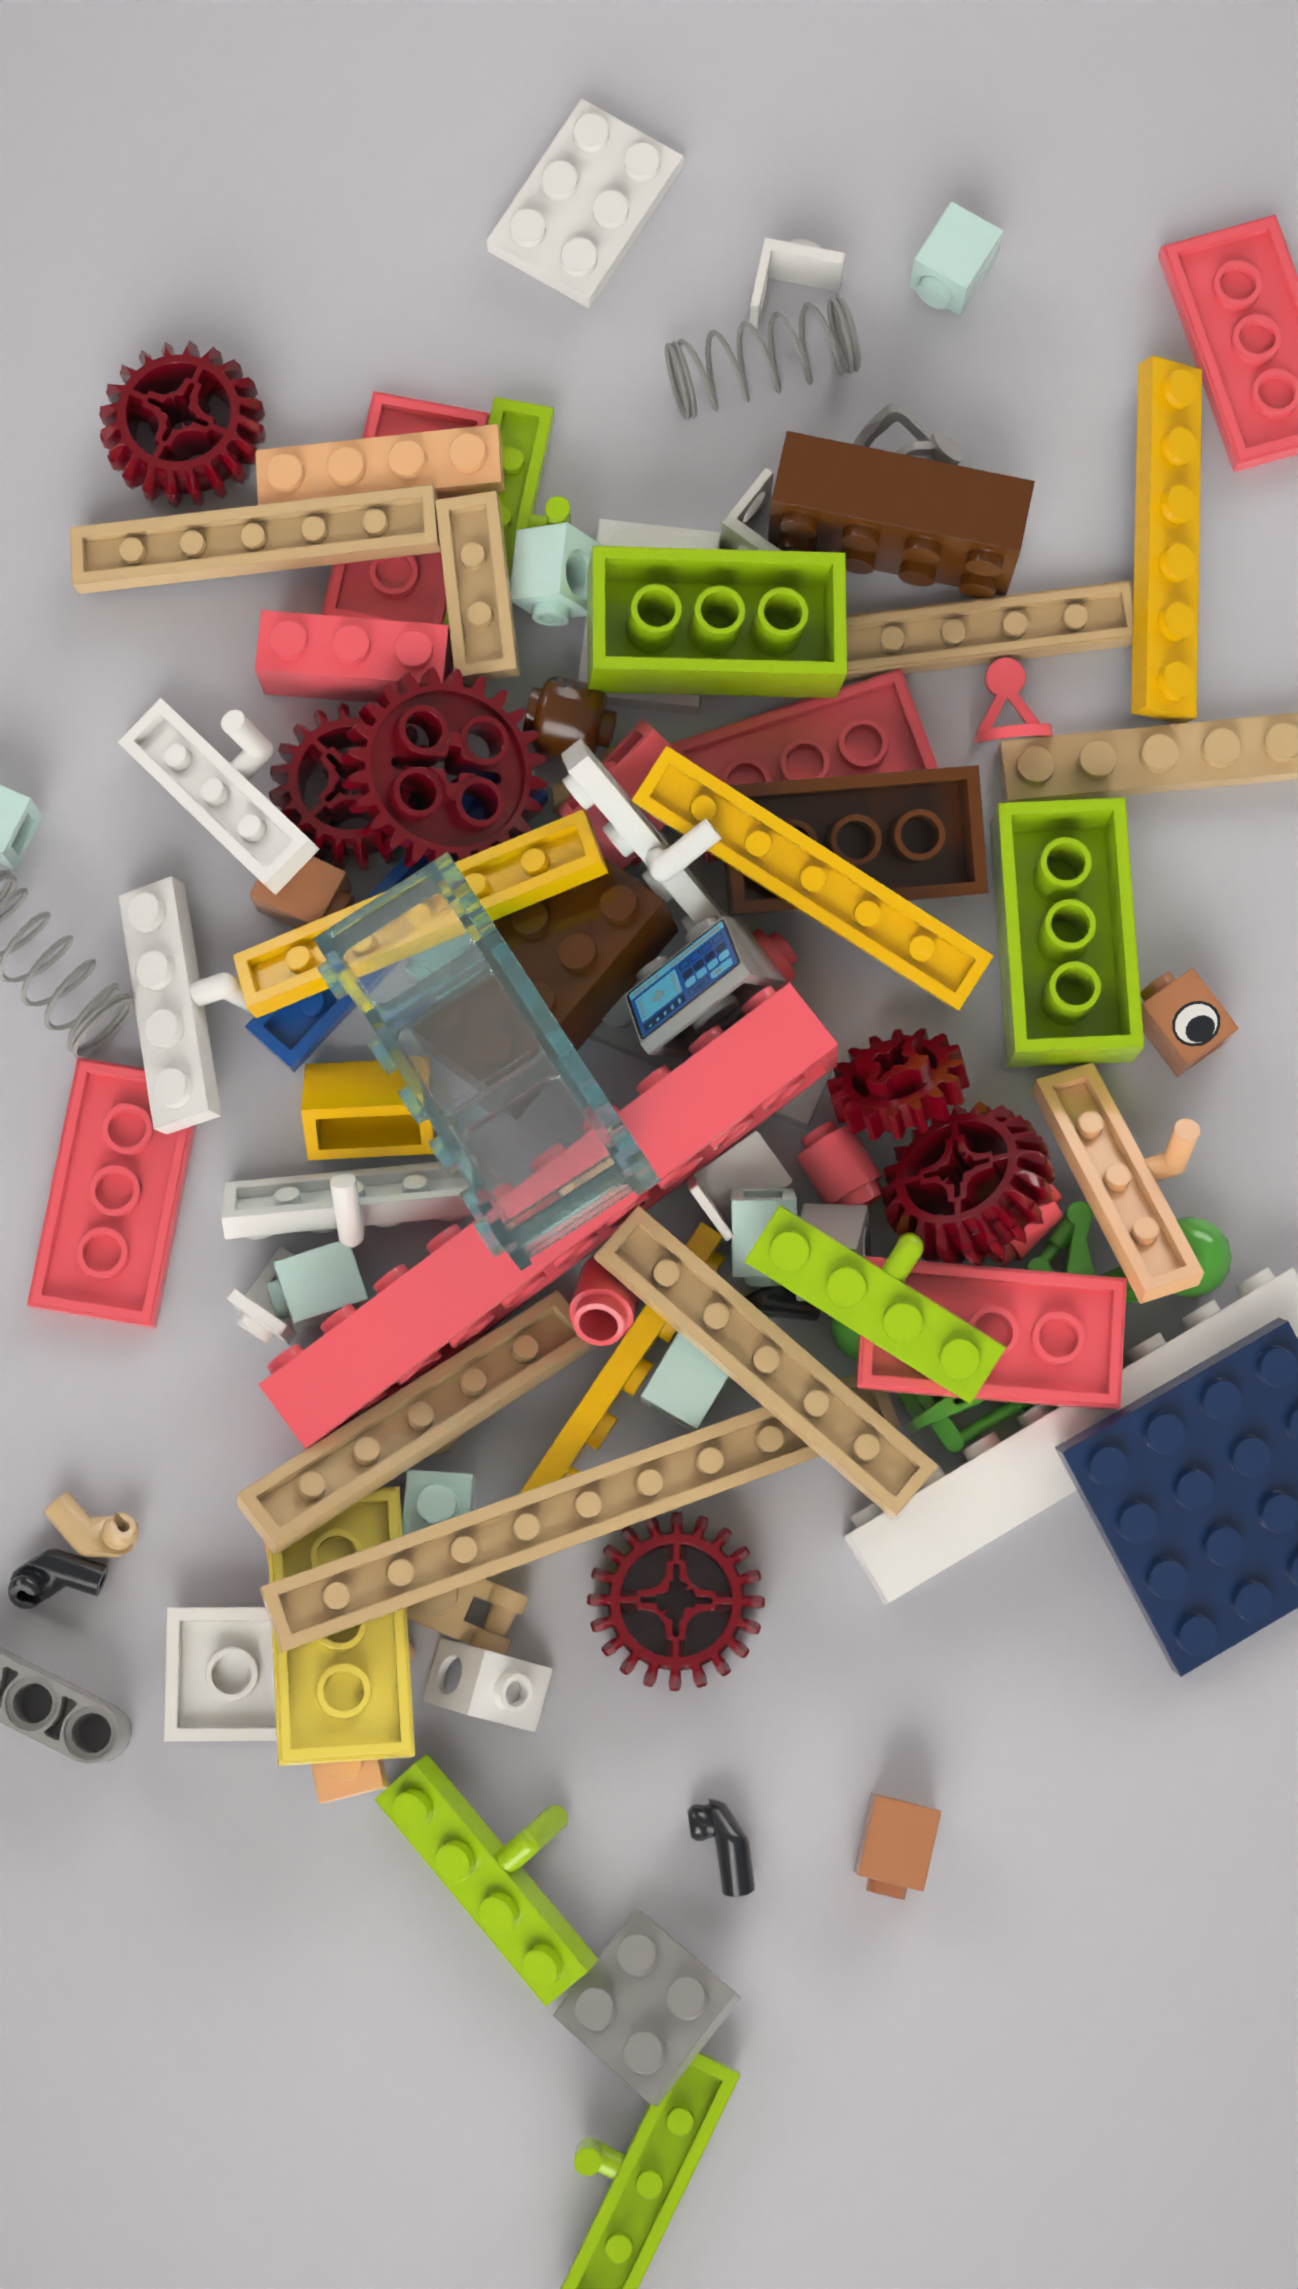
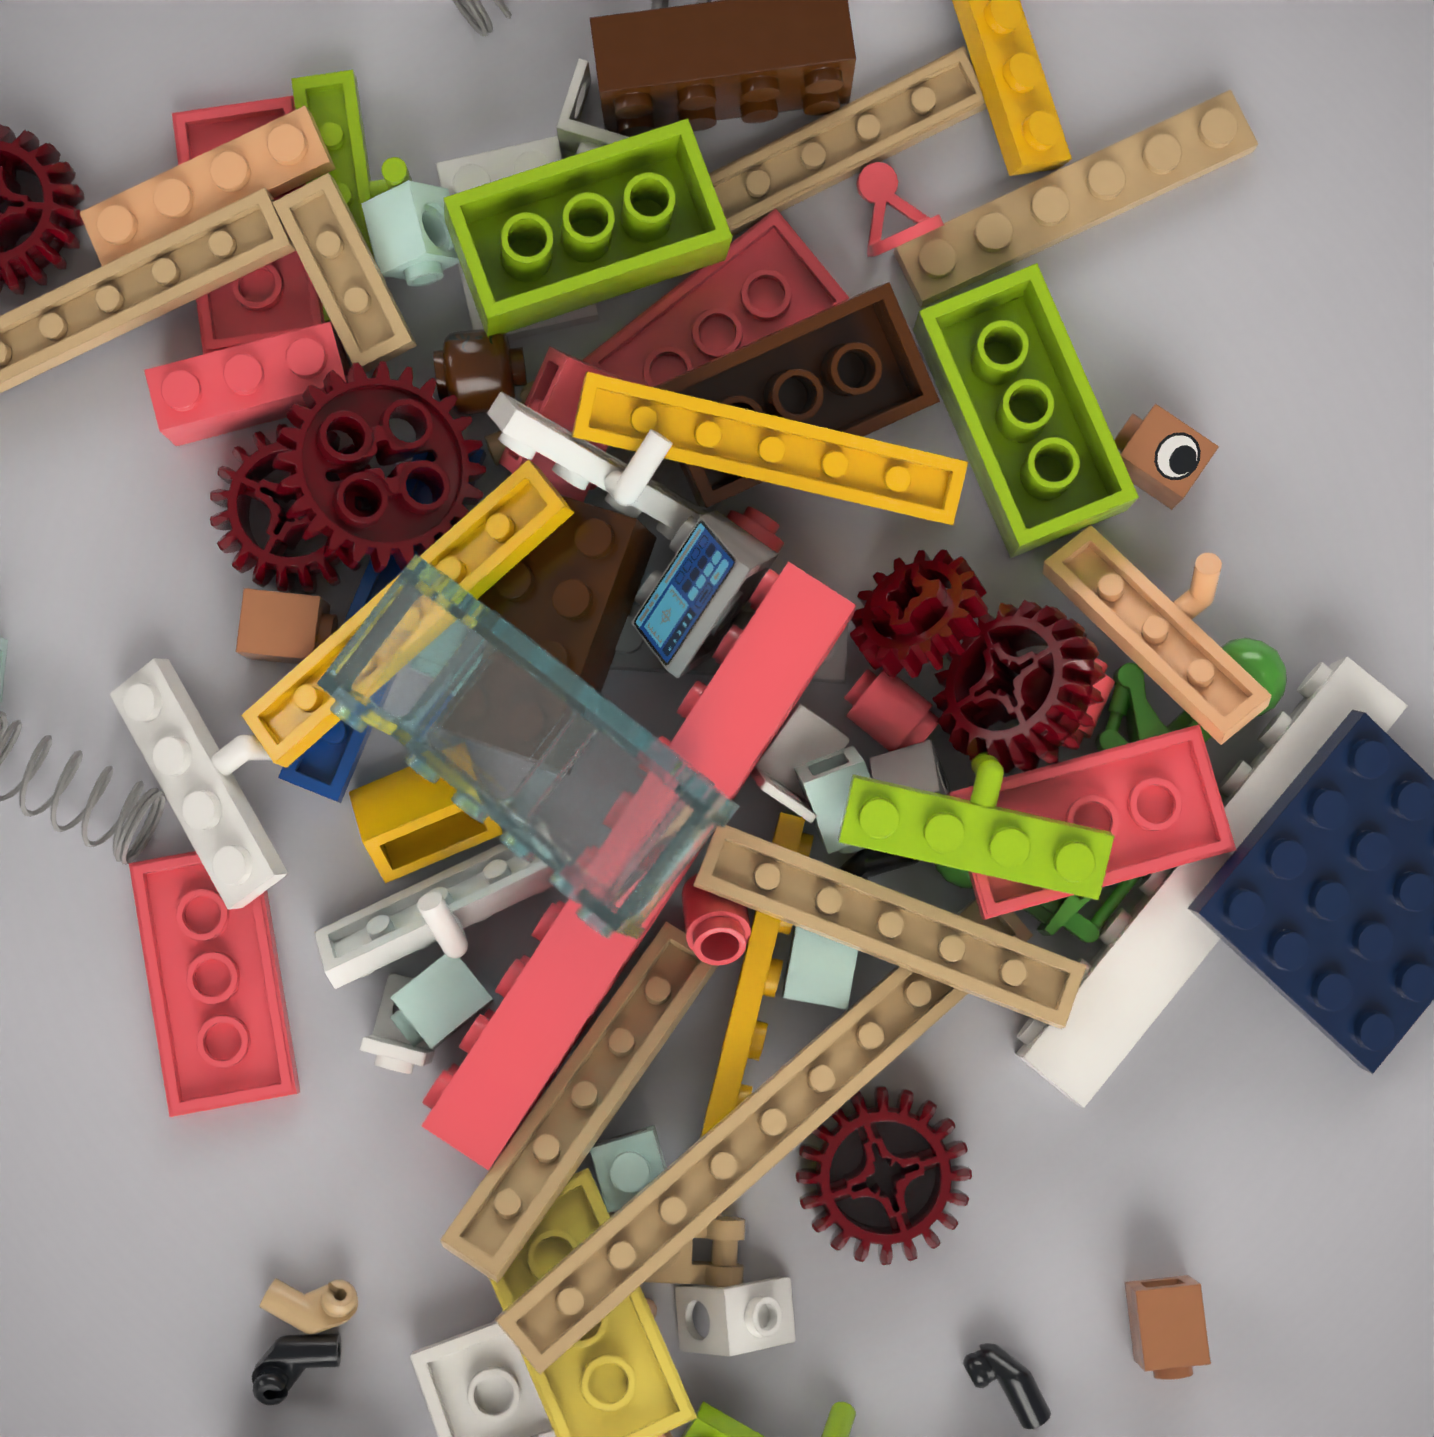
camera: 20 degrees left, 5 degrees up
(221, 791) = (170, 560): white plate -> none

